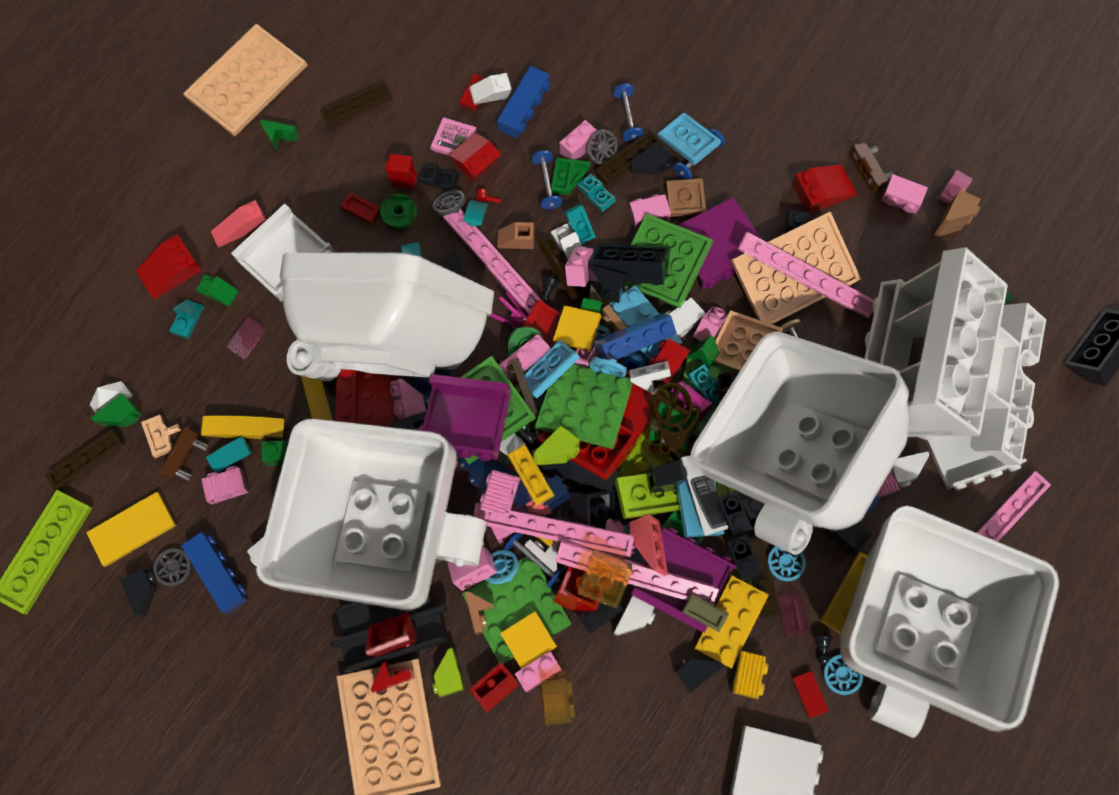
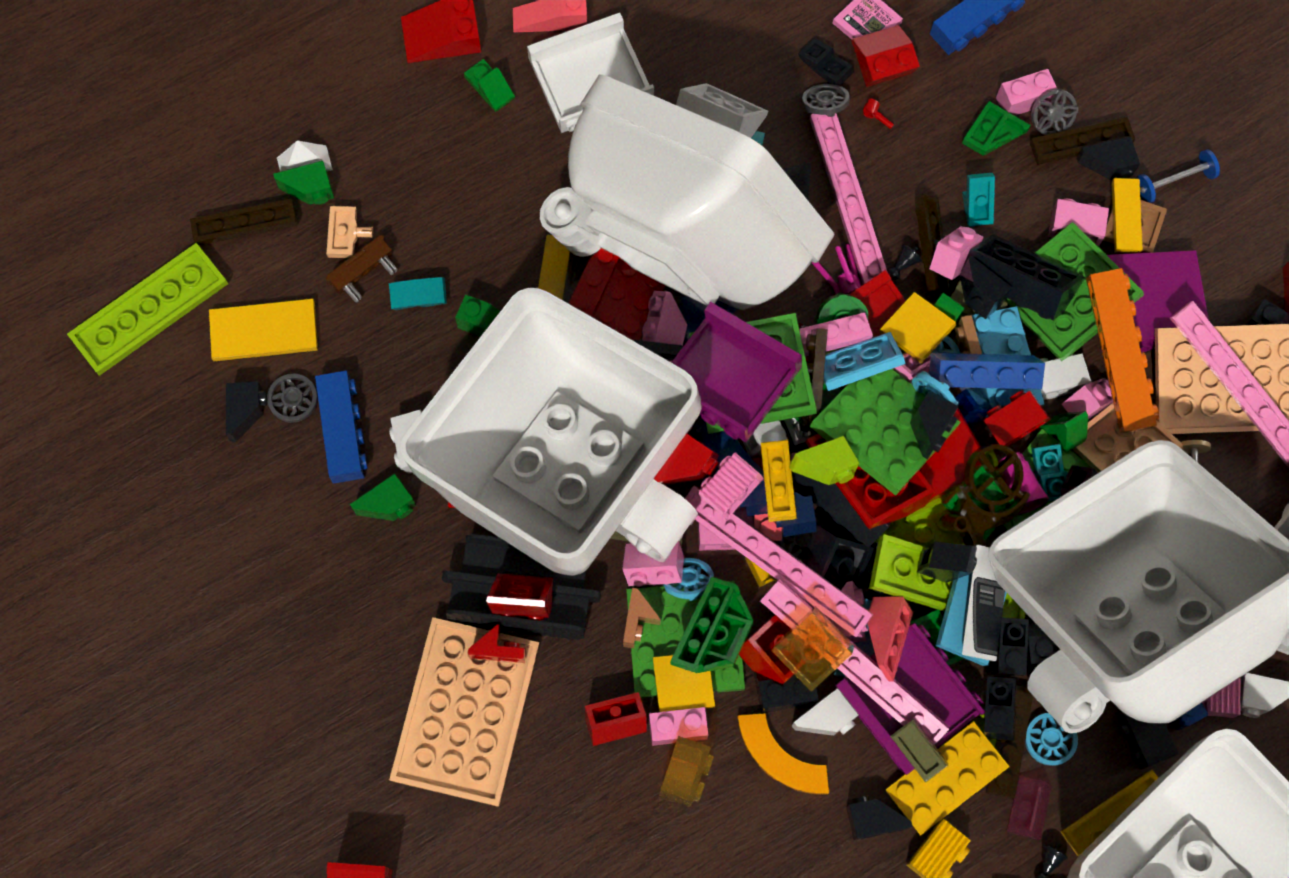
camera: 20 degrees right, 0 degrees up
(186, 319) = (437, 104): teal slope -> none
(224, 485) = (397, 327): bright pink brick -> none
(242, 426) = (447, 264): yellow slope -> none
(246, 338) = (499, 159): clear pink slope -> none
(268, 610) = (385, 501): none -> green slope
(360, 208) = (711, 59): red tile -> none
(382, 239) = (722, 108): none -> white slope
(400, 221) = (754, 71): green plate -> none
(401, 171) = (783, 34): red brick -> none
(448, 676) = (566, 680): lime slope -> none
(463, 490) = (688, 462): none -> red slope
(475, 213) = (853, 127): teal slope -> none
(514, 541) = (719, 555): axle -> none
(516, 236) = (893, 179): nougat slope -> none
(533, 596) = (715, 630): none -> green wedge
(542, 158) = (970, 94): blue axle -> none
(547, 558) = (751, 594): white slope -> none
(566, 240) = (953, 211): white slope -> none
(595, 192) = (1019, 168): teal slope -> none
(613, 663) = (777, 762): none -> light orange tile
(614, 389) = (931, 421): none -> black slope
(624, 91) = (1116, 54): blue axle -> none
(645, 375) = (977, 424): white slope -> none
(679, 194) = (1127, 215): none -> yellow tile
(689, 138) = (1173, 150): medium azure tile -> none
(716, 284) = (1121, 350): none -> orange brick

